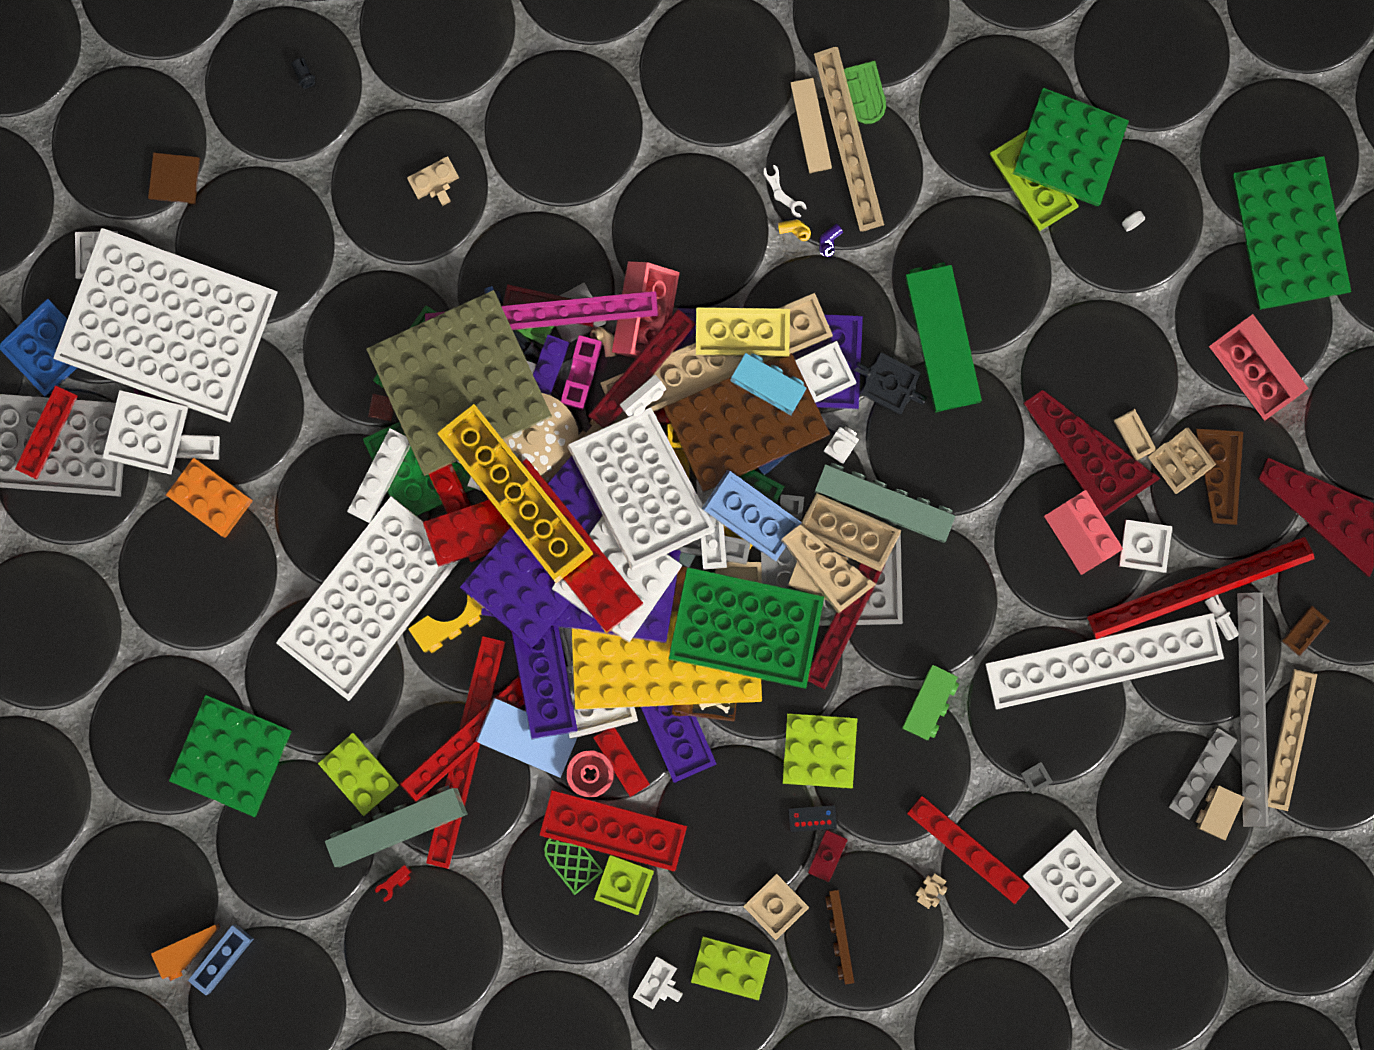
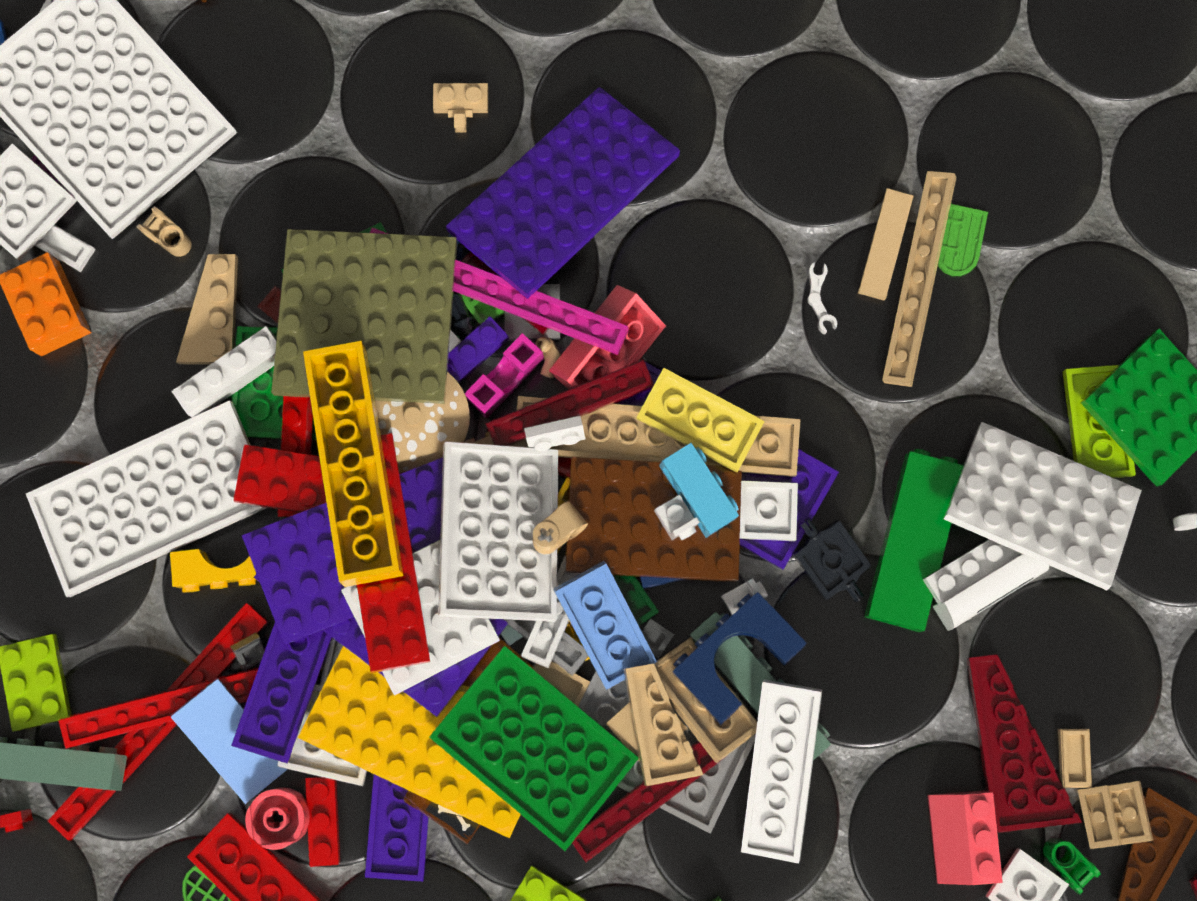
camera: 25 degrees right, 5 degrees down
(263, 397) = (163, 230): none -> tan piece
(339, 444) = (213, 314): none -> tan wing
(504, 669) = (248, 651): none -> dark grey tile
(552, 211) = (562, 192): none -> dark purple plate
(684, 461) = (562, 526): none -> tan piece
(763, 412) = (677, 518): none -> white bracket
(795, 226) = (814, 341): yellow arm -> none
(826, 240) = (841, 372): dark purple arm -> none
(854, 455) = (753, 619): none -> dark blue arch
(929, 552) = (781, 770): none -> white plate
(1005, 336) = (980, 581): none -> white brick
(1020, 265) = (1043, 505): none -> white plate
(1171, 512) = (1073, 867): none -> green piece

